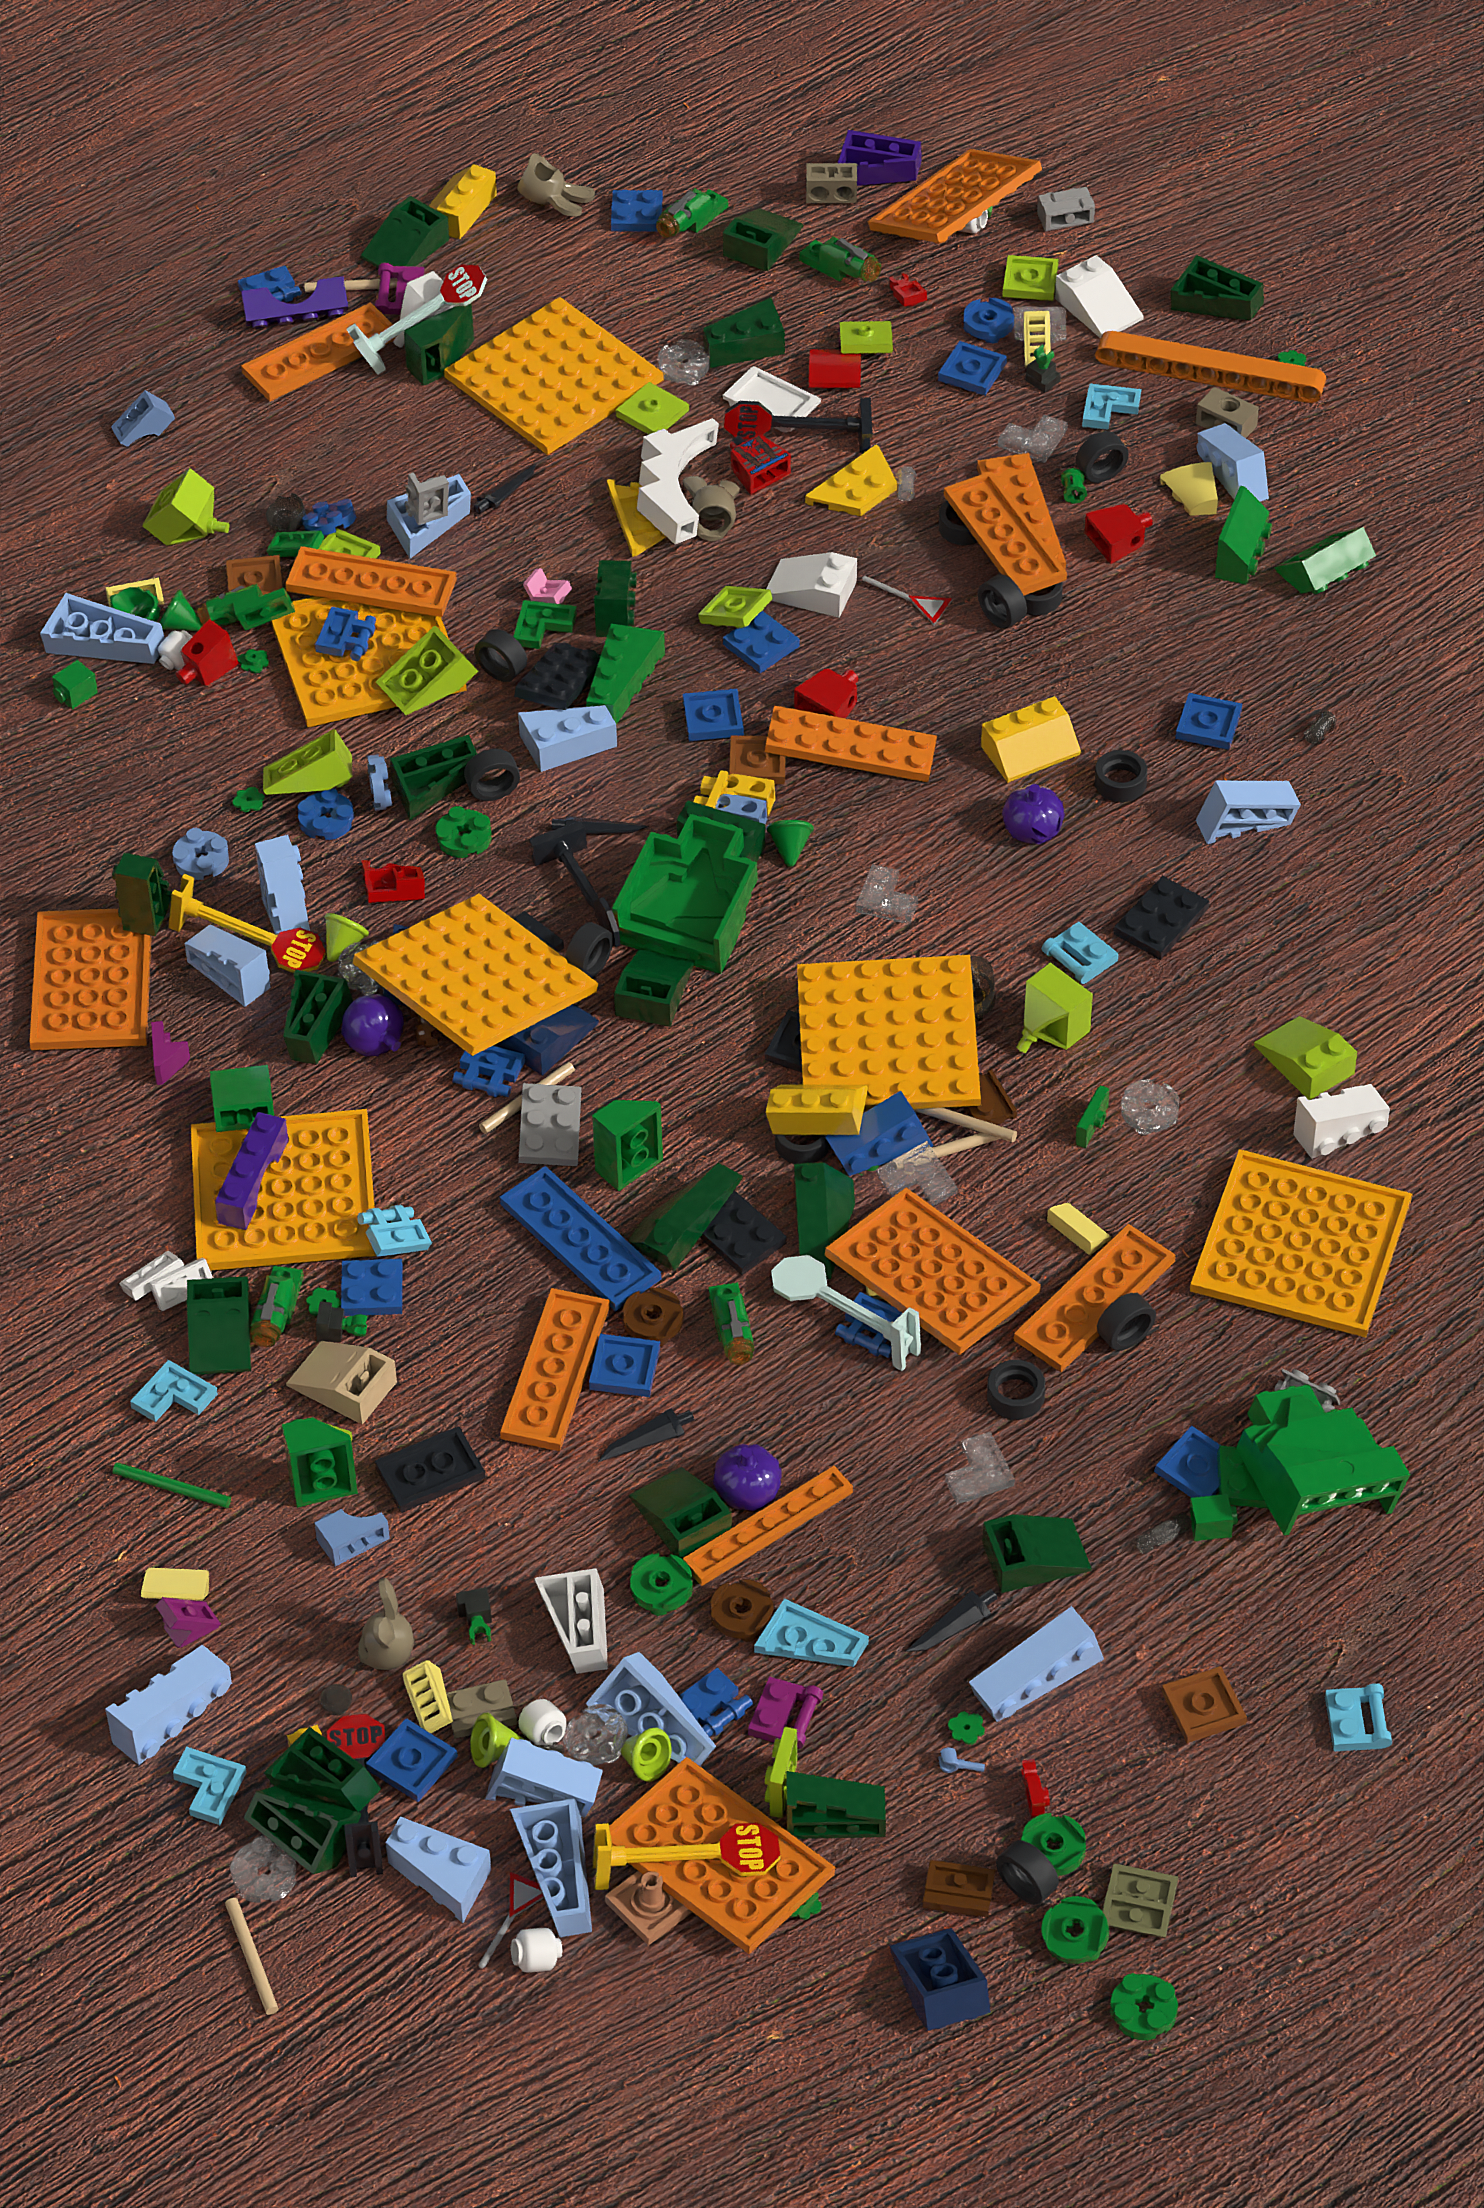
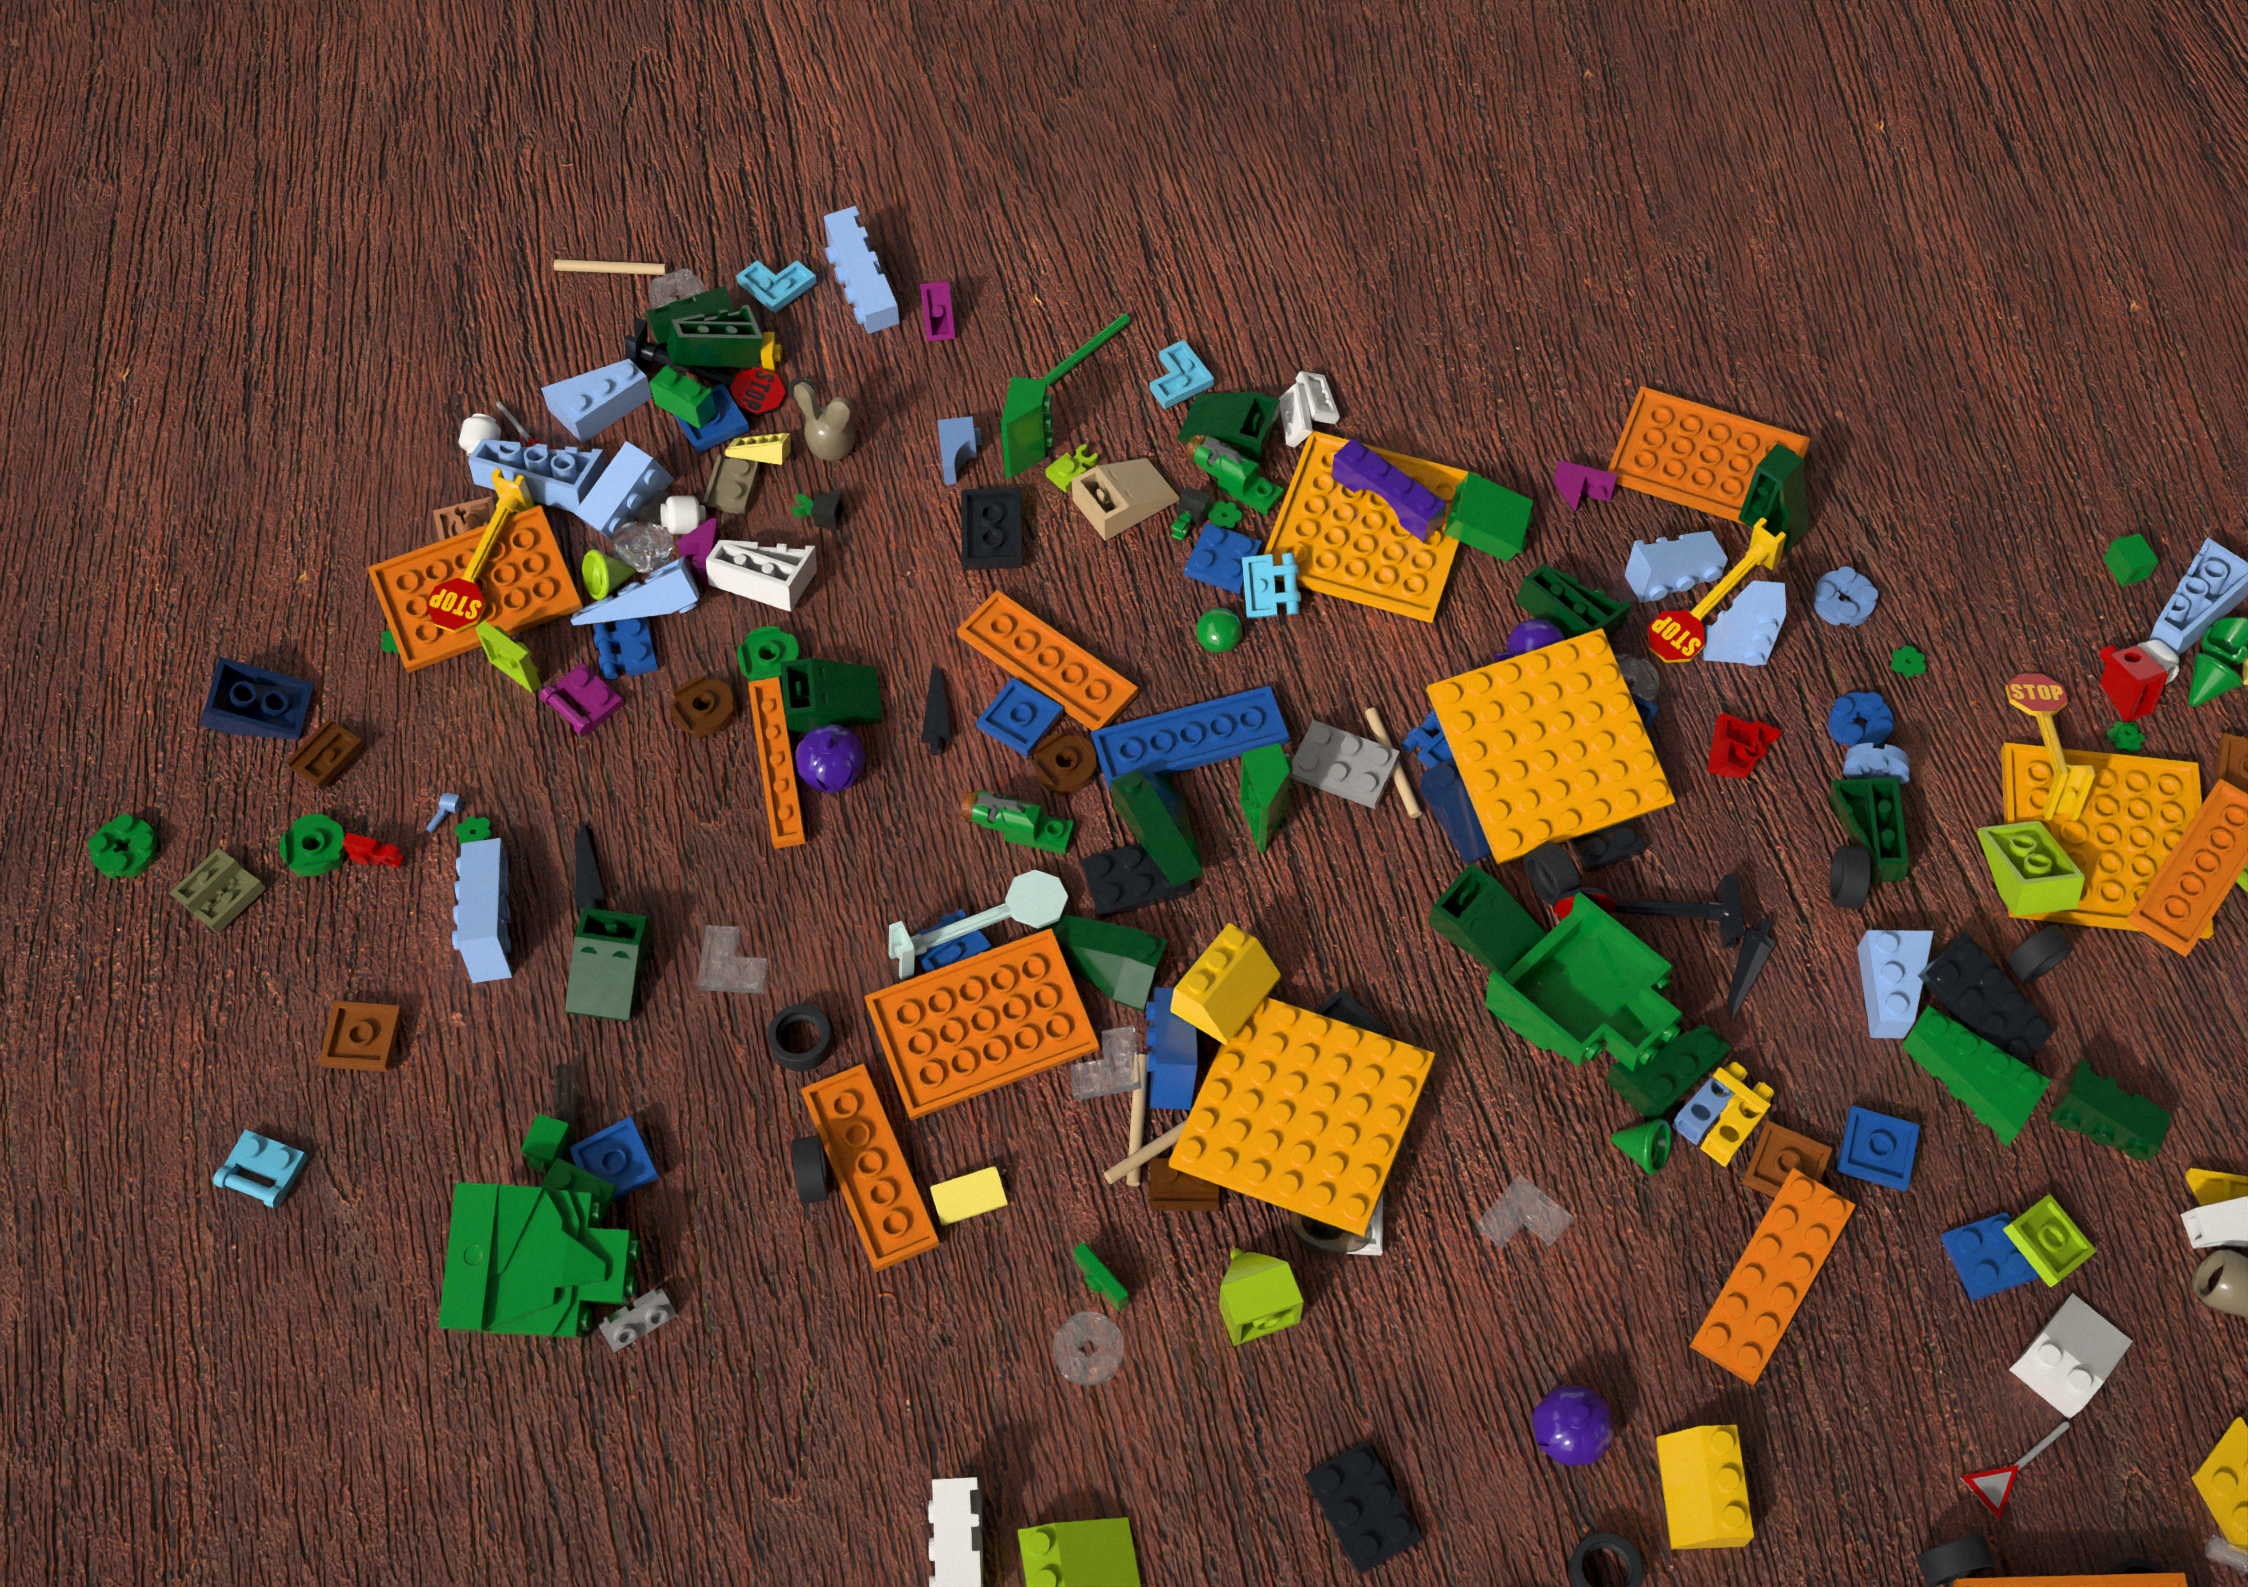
camera: 115 degrees right, 10 degrees up
(175, 1583) = (975, 315): light yellow slope -> none
(246, 606) = (2200, 736): green plate -> none
(248, 712) = (2043, 699): none -> yellow piece
(312, 767) = (1924, 718): lime slope -> none
(337, 633) = (2128, 806): blue plate -> none
(340, 934) = (1679, 674): lime hat -> none
(411, 1769) = (683, 397): none -> green brick
(455, 1258) = (1219, 630): none -> green hair
(463, 820) = (1792, 820): green plate -> none
(489, 1739) = (686, 474): lime hat -> none
(541, 616) = (2102, 1027): green plate -> none
(546, 590) = (2147, 1049): bright pink bracket -> none
(566, 1686) = (698, 546): none -> magenta slope
(810, 1636) = (643, 746): medium azure wing -> none
(828, 693) = (1862, 1286): red torso -> none
(834, 1808) = (457, 686): dark green wedge -> none
(1027, 1872) = (286, 788): black tyre -> none
(1063, 1916) = (219, 836): green plate -> none
(1085, 947) = (1351, 1397): medium azure plate -> none
(1301, 1243) = (824, 1417): light orange plate -> none

